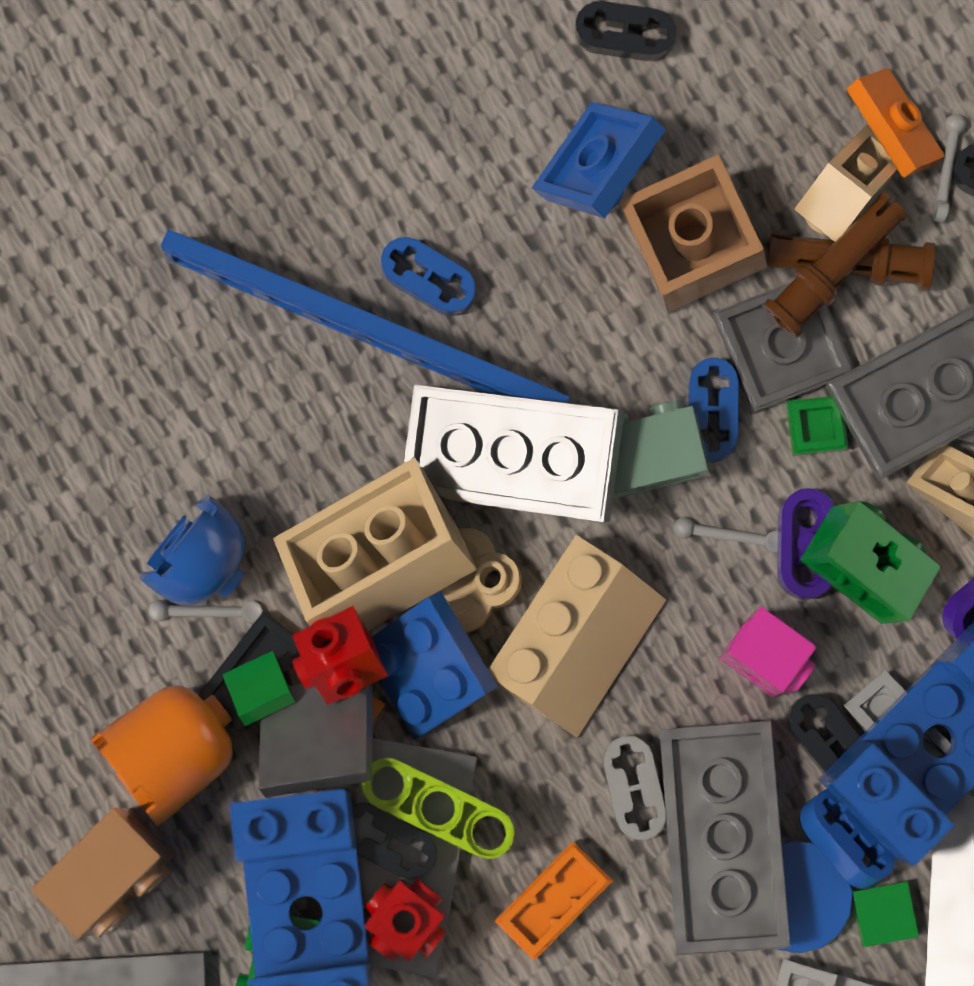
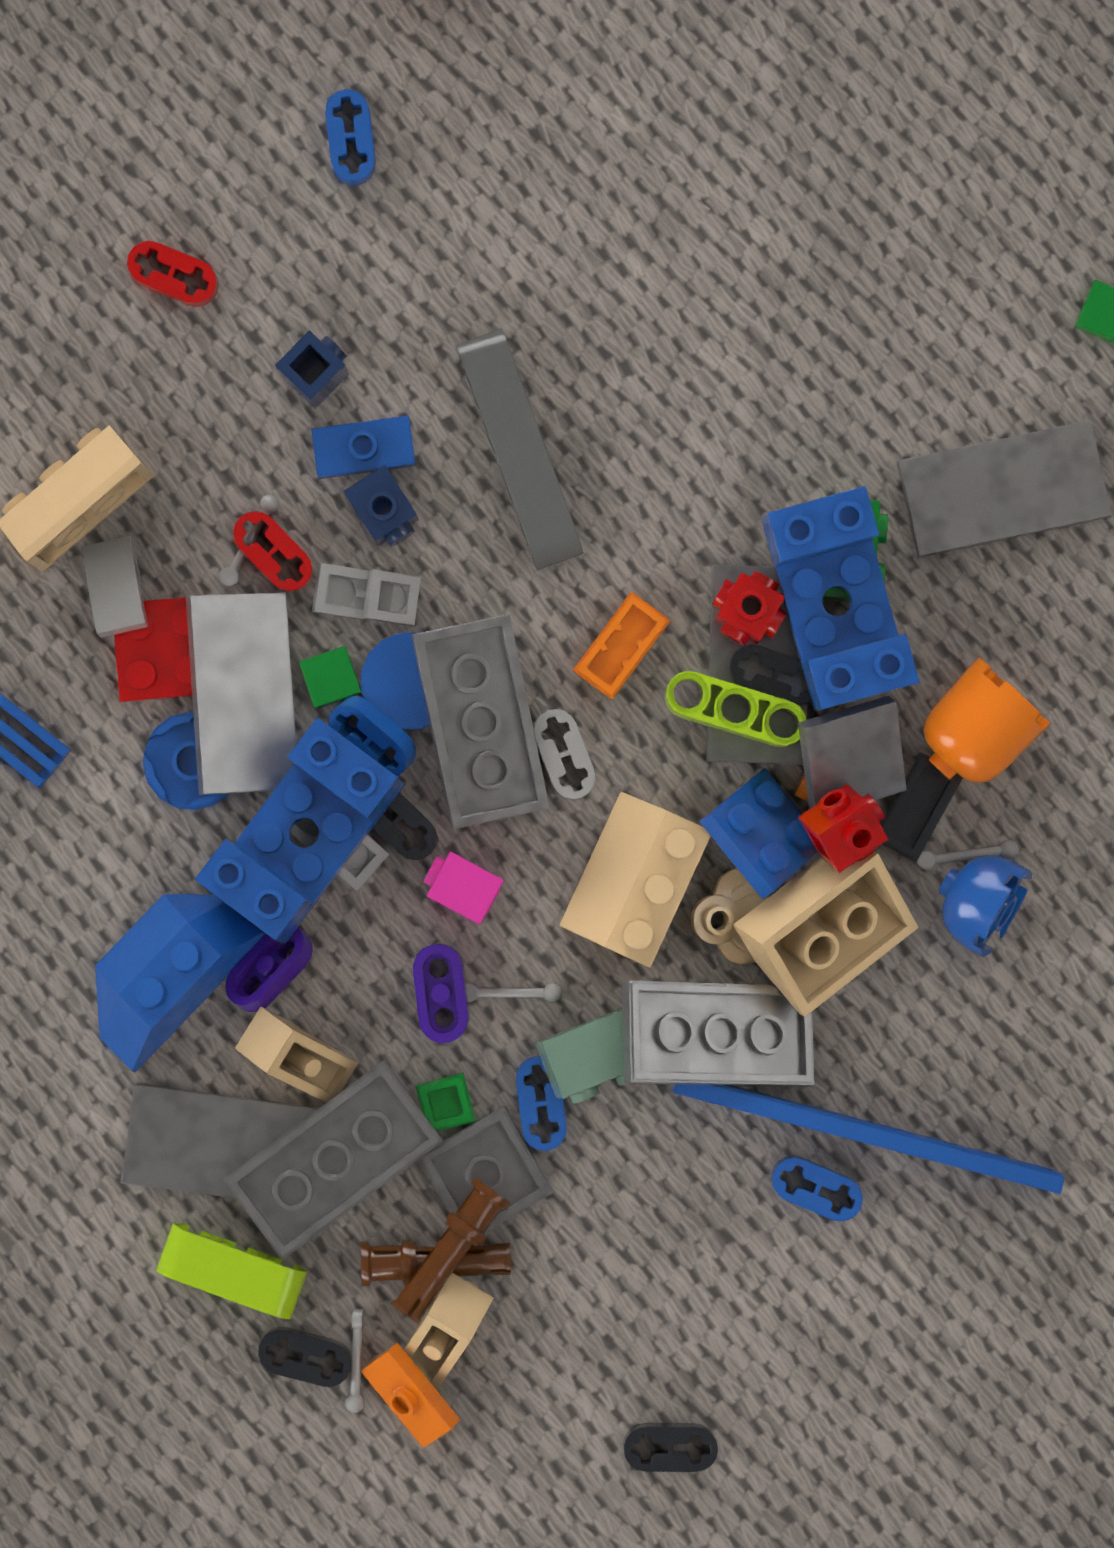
camera: 165 degrees right, 5 degrees up
(104, 873) = (1018, 610): medium nougat brick -> none
(258, 688) = (909, 791): green tile -> none
(599, 159) = (678, 1317): blue plate -> none
(693, 233) = (583, 1260): medium nougat brick -> none
(871, 562) = (408, 983): green brick -> none

